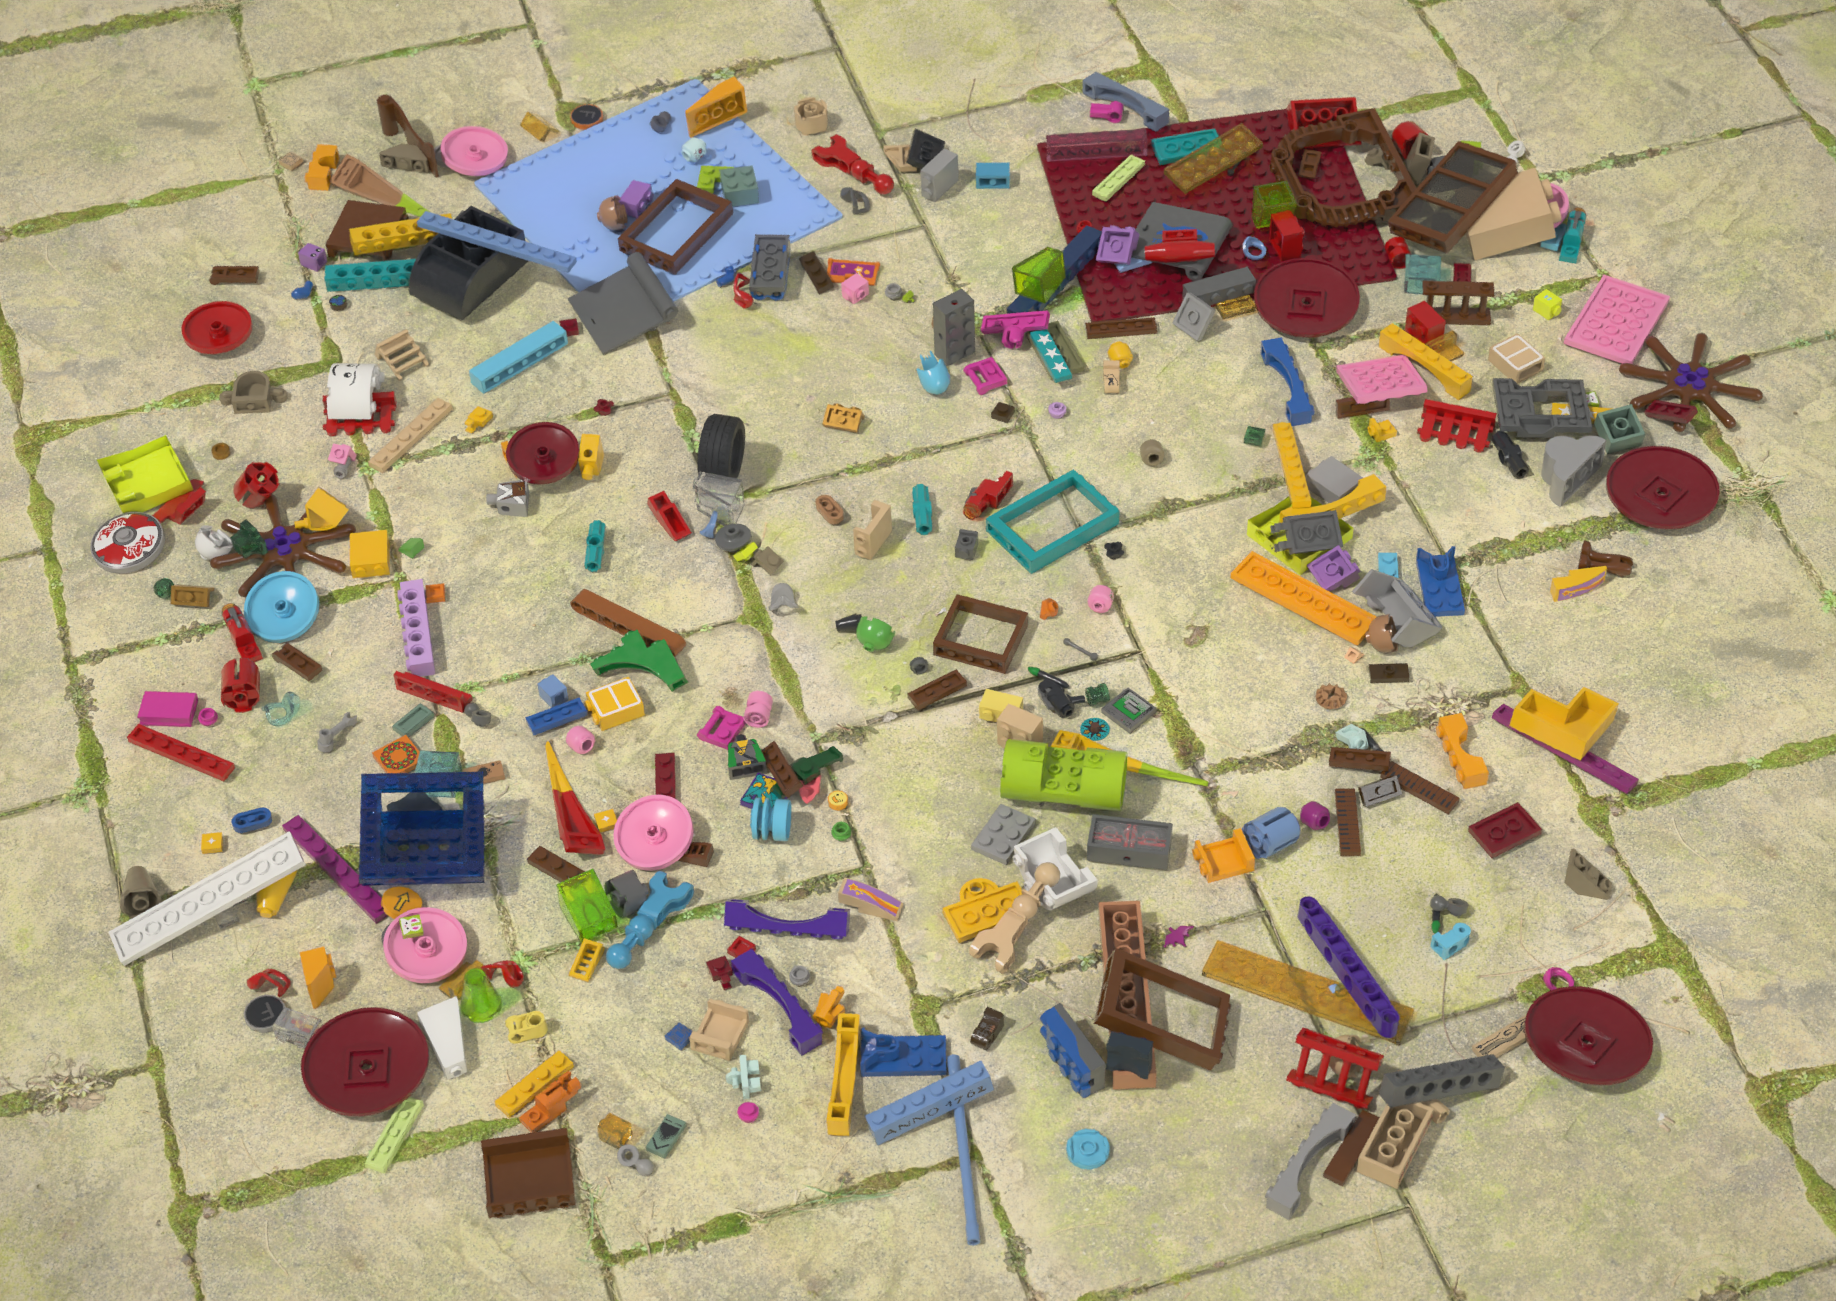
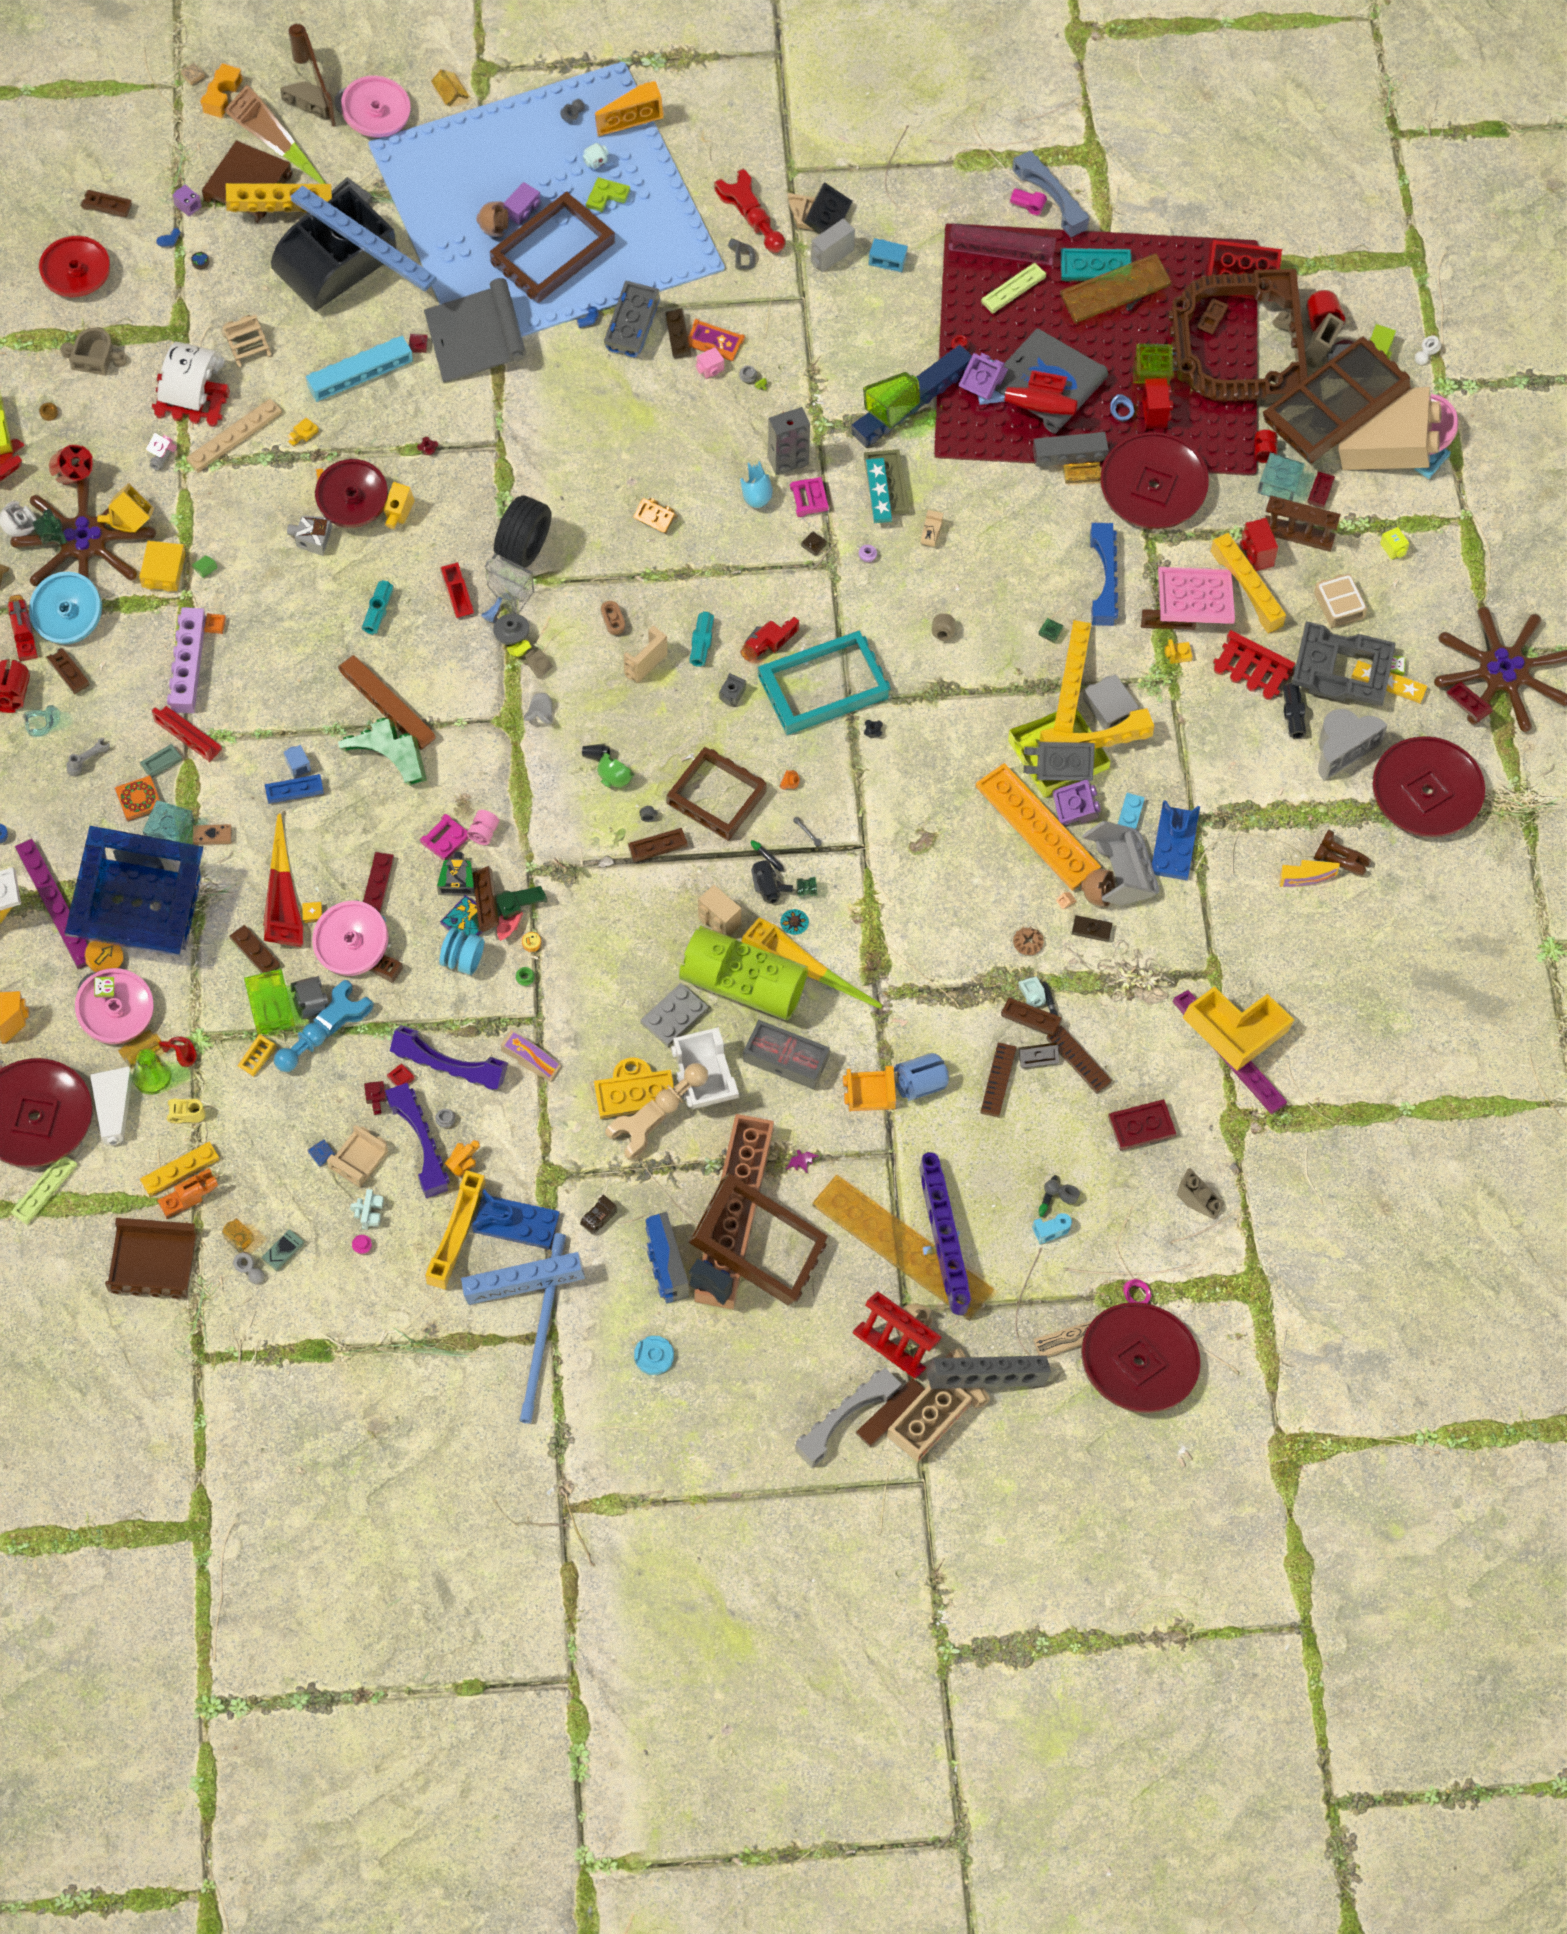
camera: 10 degrees right, 15 degrees up
(368, 275) = (236, 235): teal brick -> none
(477, 716) = (222, 772): dark grey plate -> none
(580, 739) = (309, 820): bright pink head -> none
(586, 116) = (500, 85): black tile -> none
(614, 704) = (350, 788): yellow brick -> none
(739, 185) = (628, 212): sand green brick -> none
(742, 298) = (595, 349): red piece -> none
(811, 116) = (725, 139): tan brick -> none
(995, 702) = (707, 875): light yellow brick -> none
(1015, 325) = (853, 447): dark pink plate -> none
(1101, 597) = (842, 782): bright pink head -> none
(1120, 352) = (948, 503): yellow head -> none
(1121, 328) = (960, 470): reddish brown tile -> none
(1128, 710) = (832, 910): tile -> none
(1194, 316) = (1034, 477): light grey tile -> none
(1315, 815) = (968, 1067): magenta head -> none
(1446, 346) = (1274, 571): clear yellow panel -> none
(1469, 769) = (1132, 1053): light orange arch -> none
(1573, 235) = (1450, 466): teal plate -> none
(1616, 320) = (1458, 577): bright pink plate -> none
(1619, 428) = (1410, 709): sand green brick -> none

